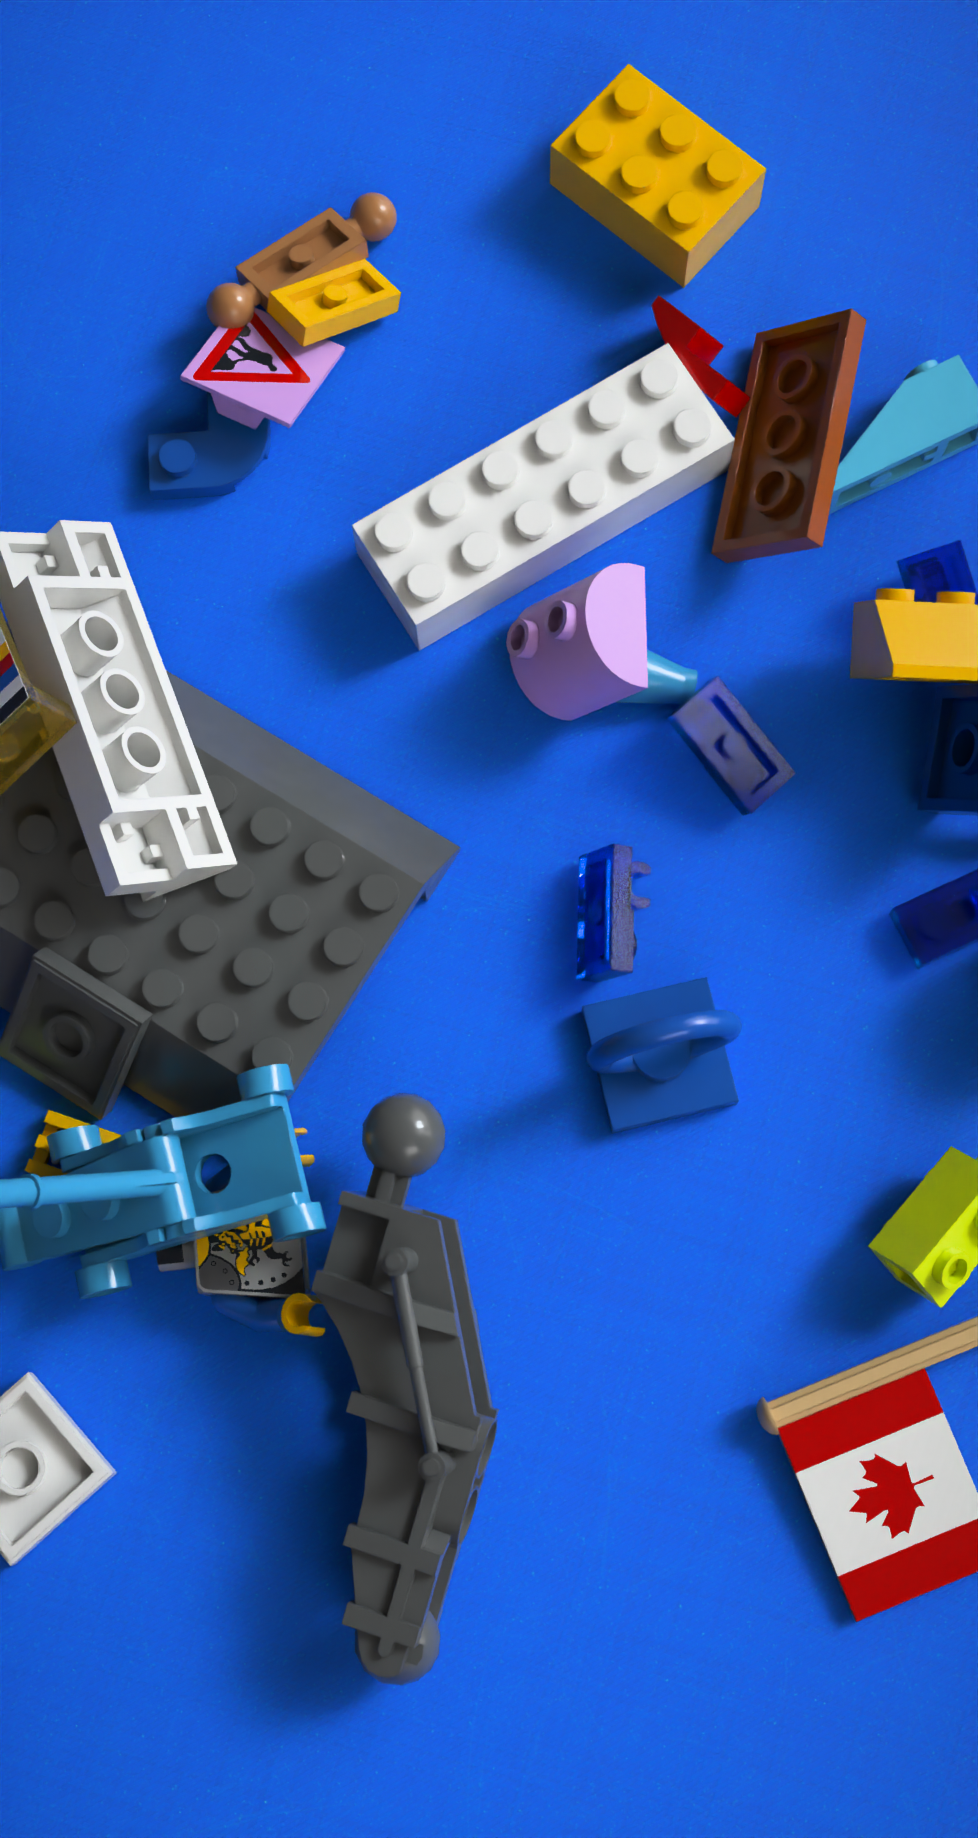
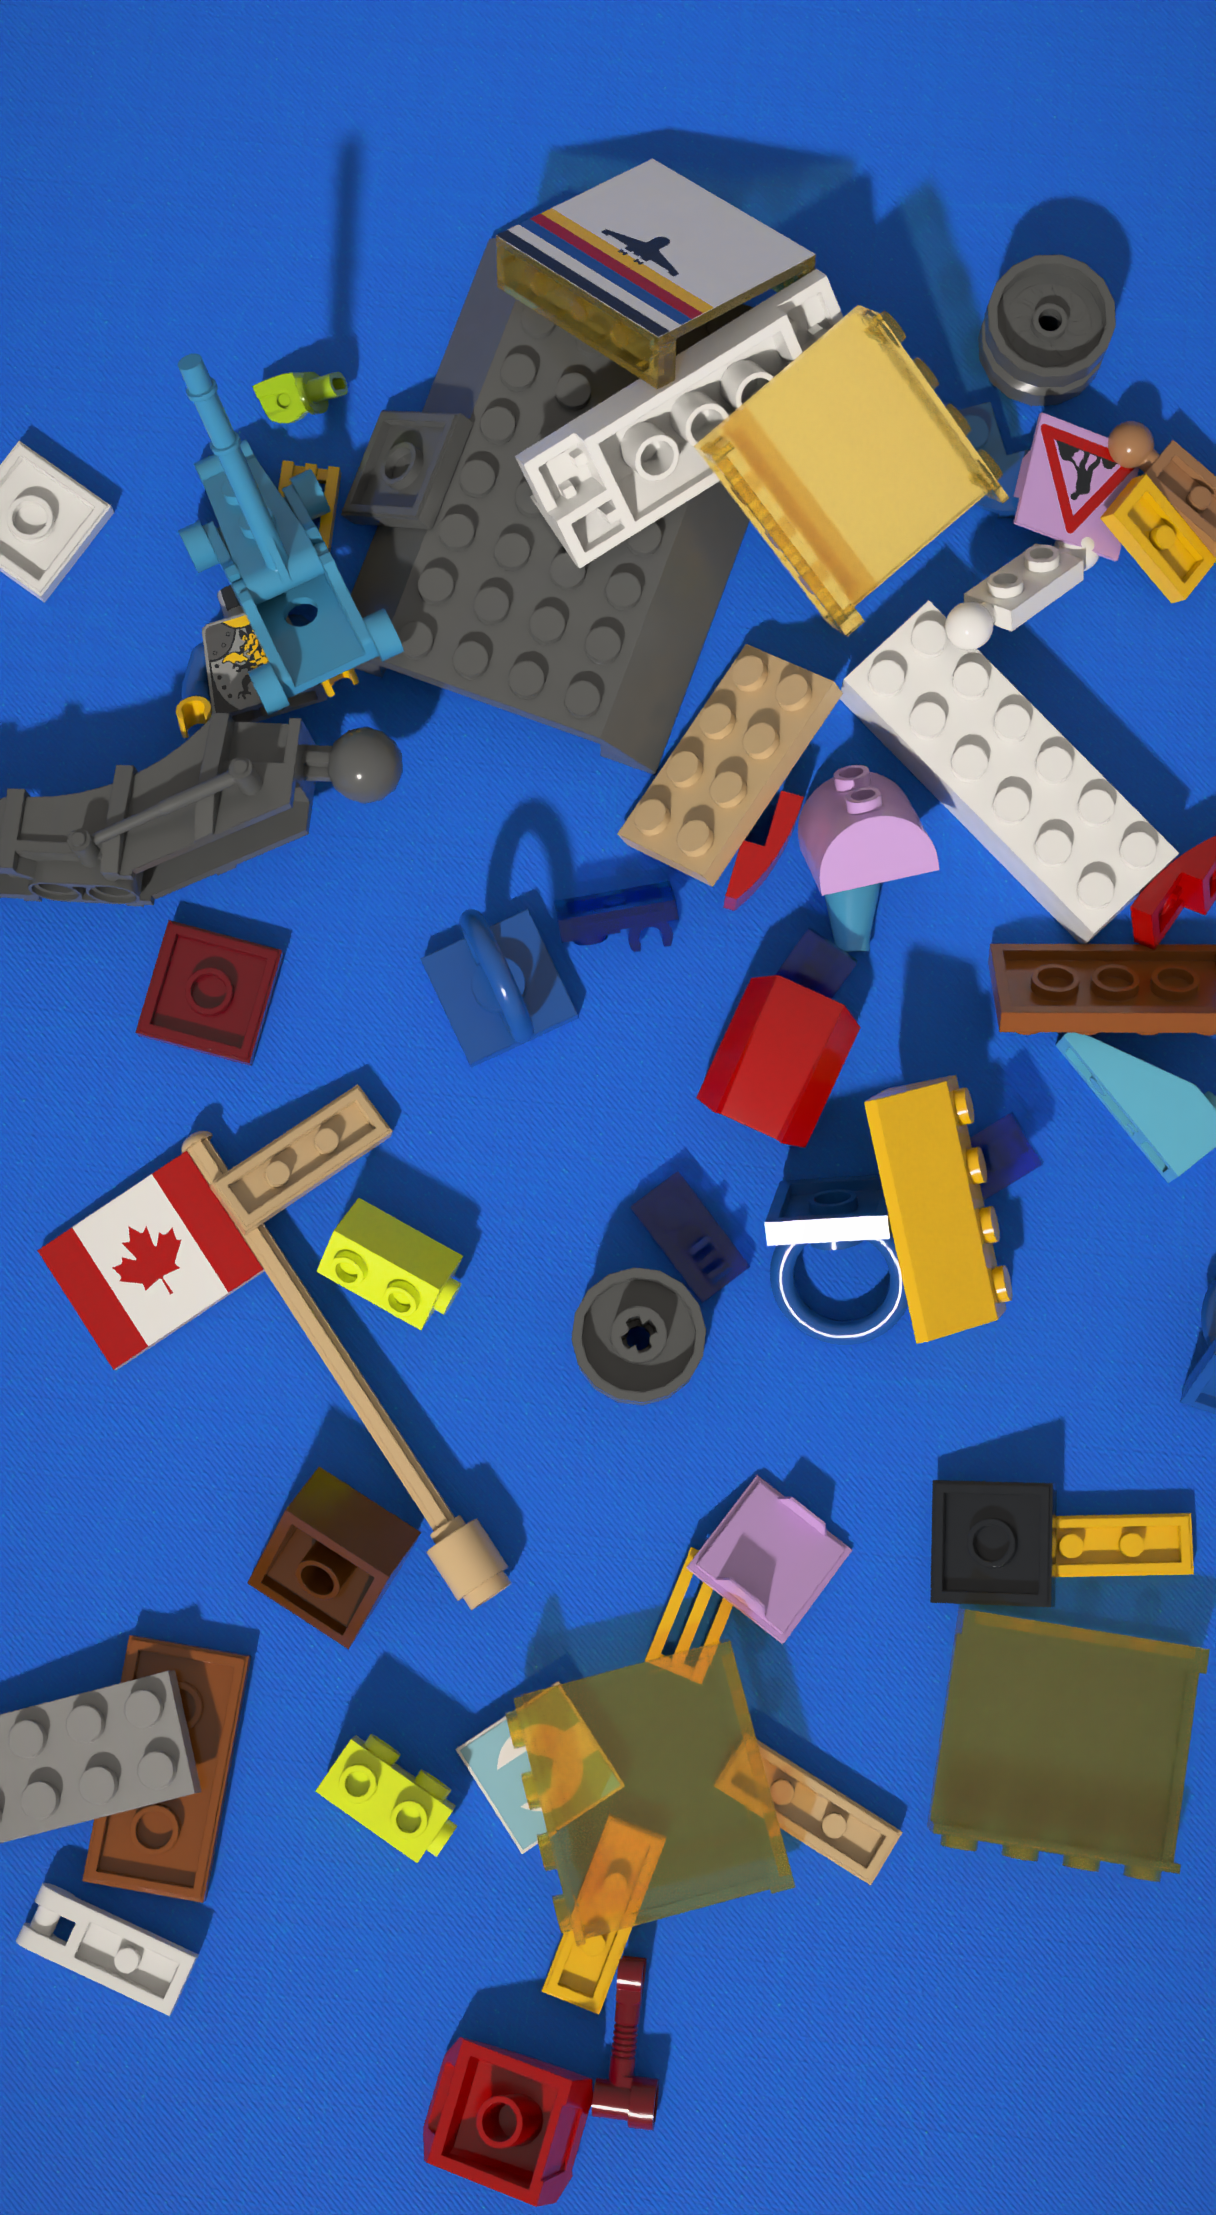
camera: 75 degrees right, 5 degrees up
(91, 359) = (1046, 330): none -> dark grey wheel
(187, 566) = (850, 463): none -> clear yellow panel
(363, 439) = (1018, 591): none -> white plate
(475, 764) = (730, 764): none -> tan plate
(585, 763) = (757, 861): none -> red slope
(603, 1369) = (210, 993): none -> dark red tile
(800, 779) = (779, 1059): none -> red slope
(811, 1303) = (301, 1159): none -> tan tile

